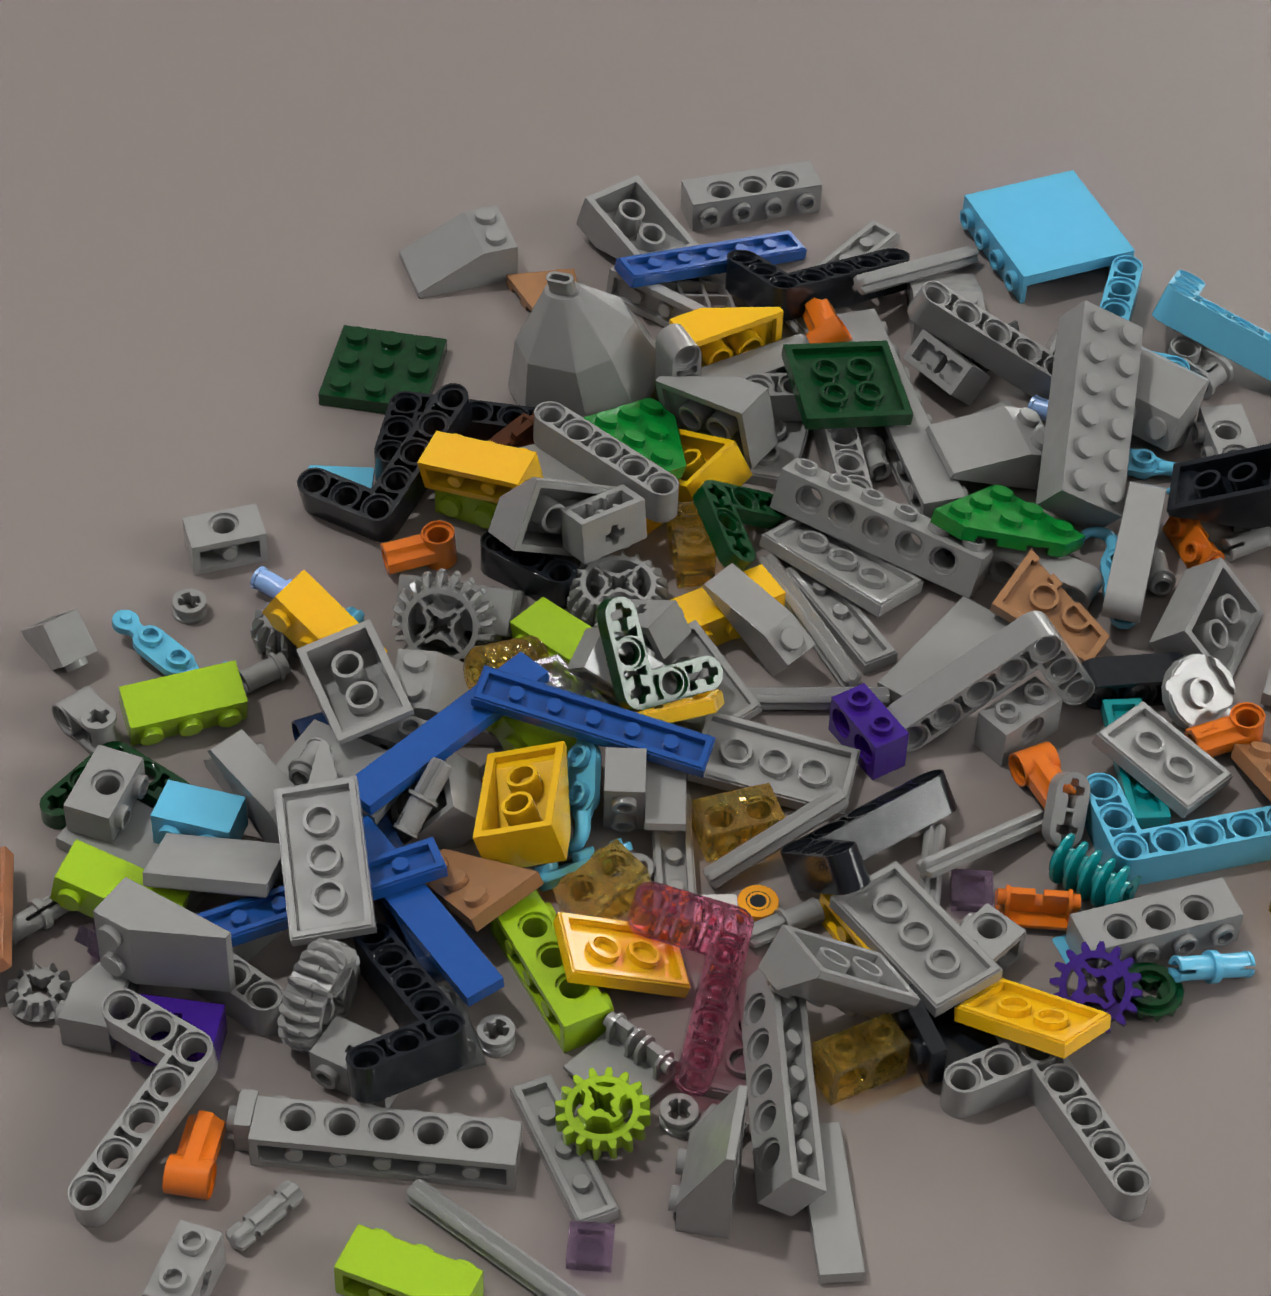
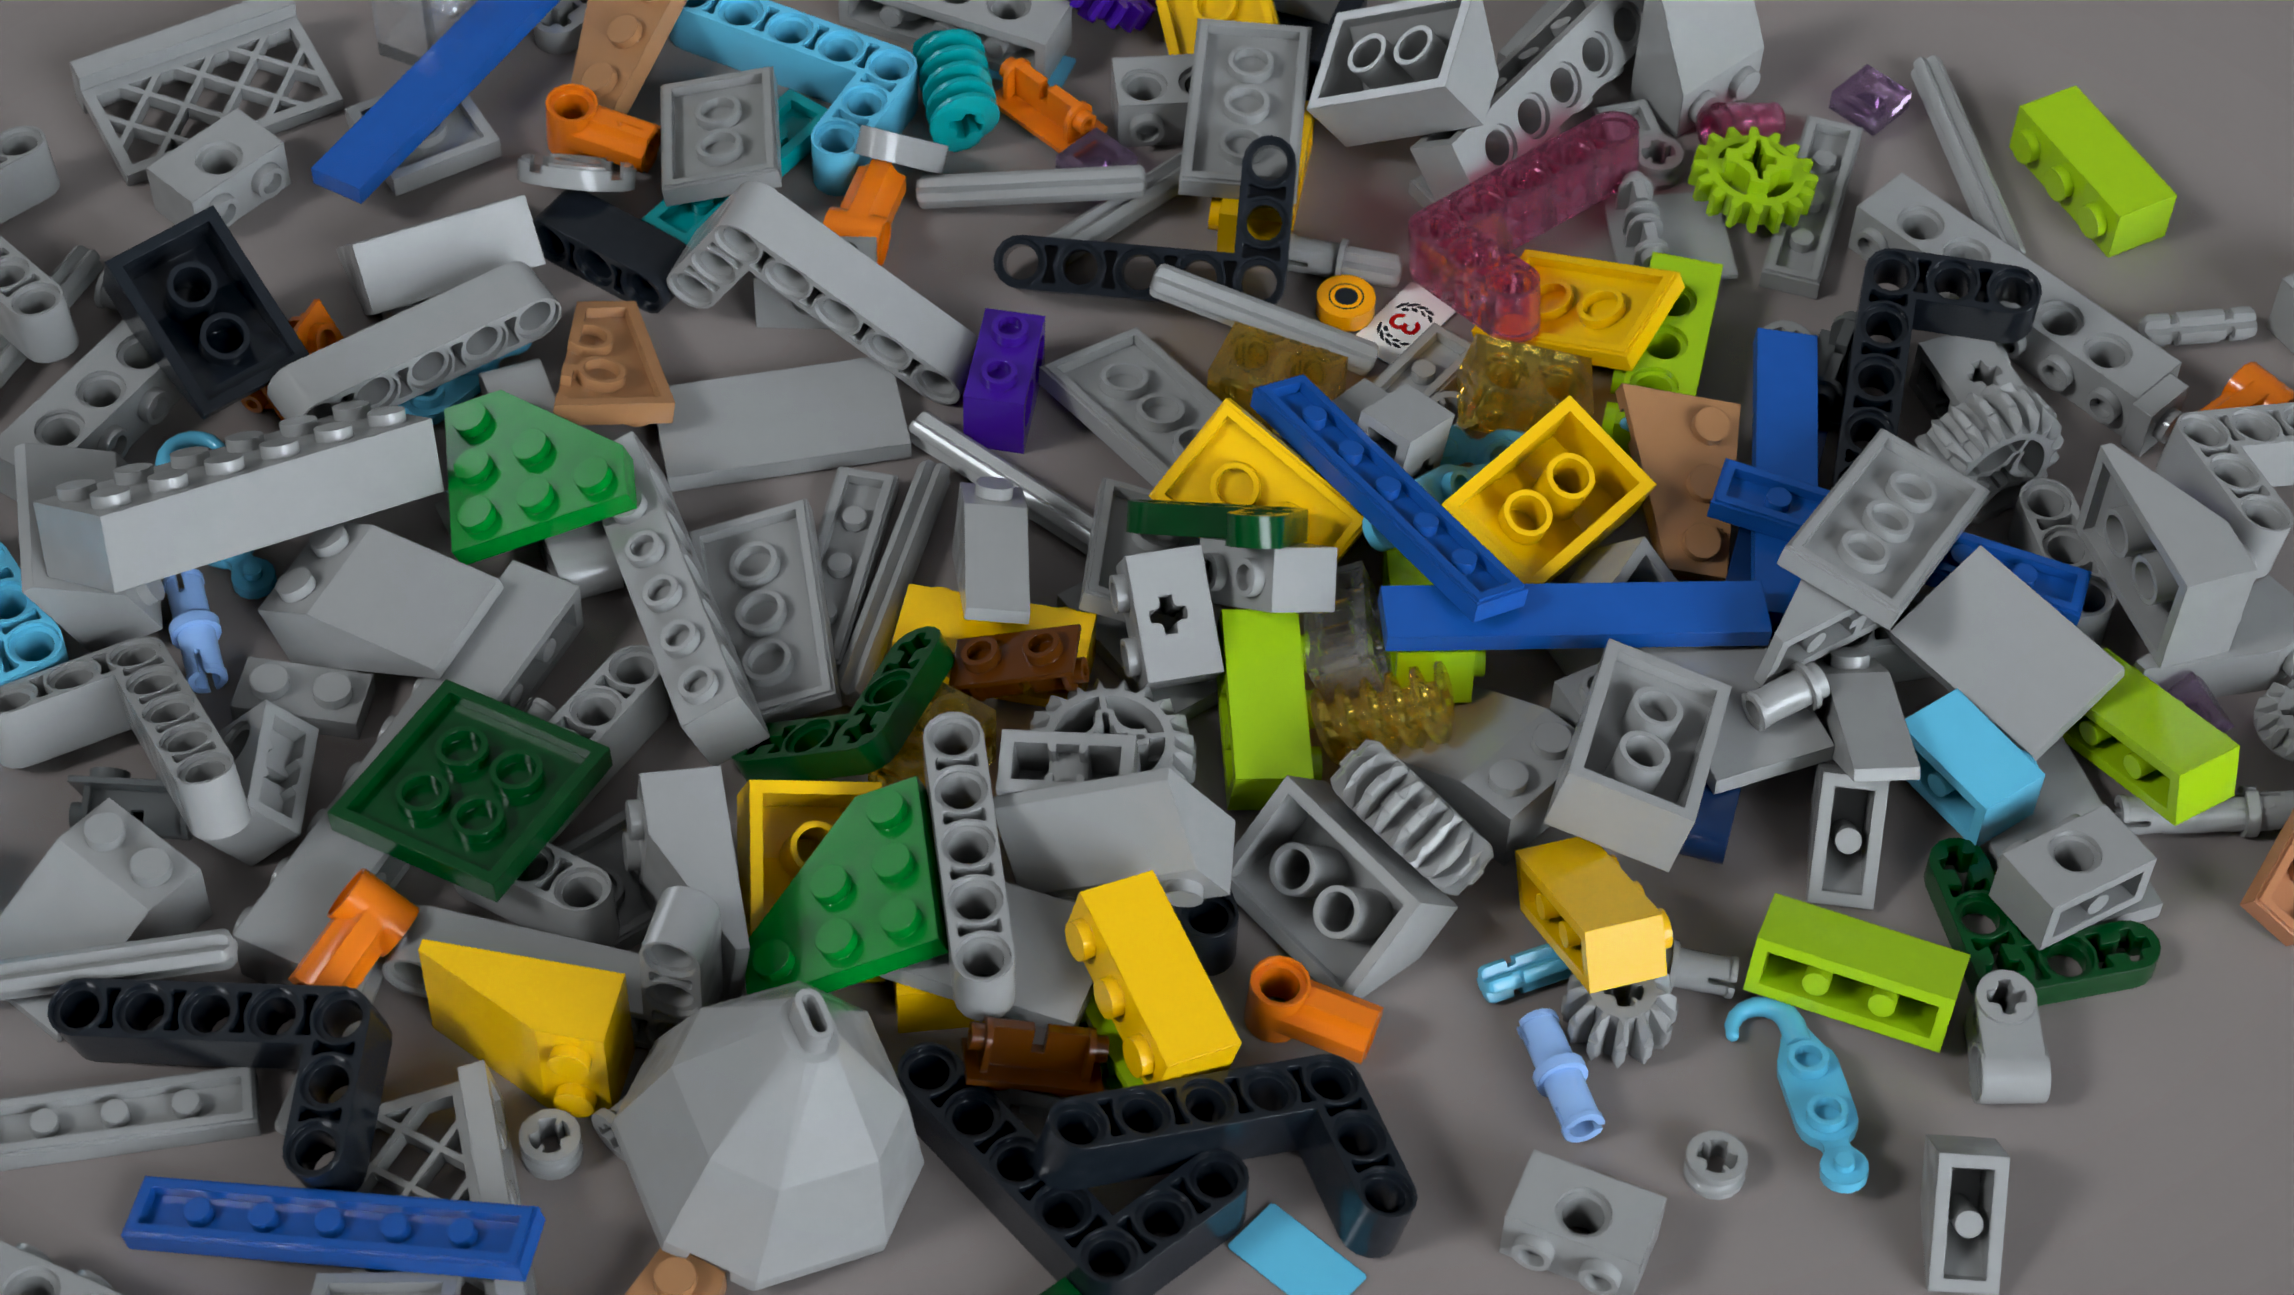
camera: 140 degrees left, 5 degrees up
(423, 797) = (1670, 567): light grey axle -> none
(650, 1167) = (1741, 115): none -> clear pink cone
(684, 575) = (1002, 662): none -> reddish brown hinge

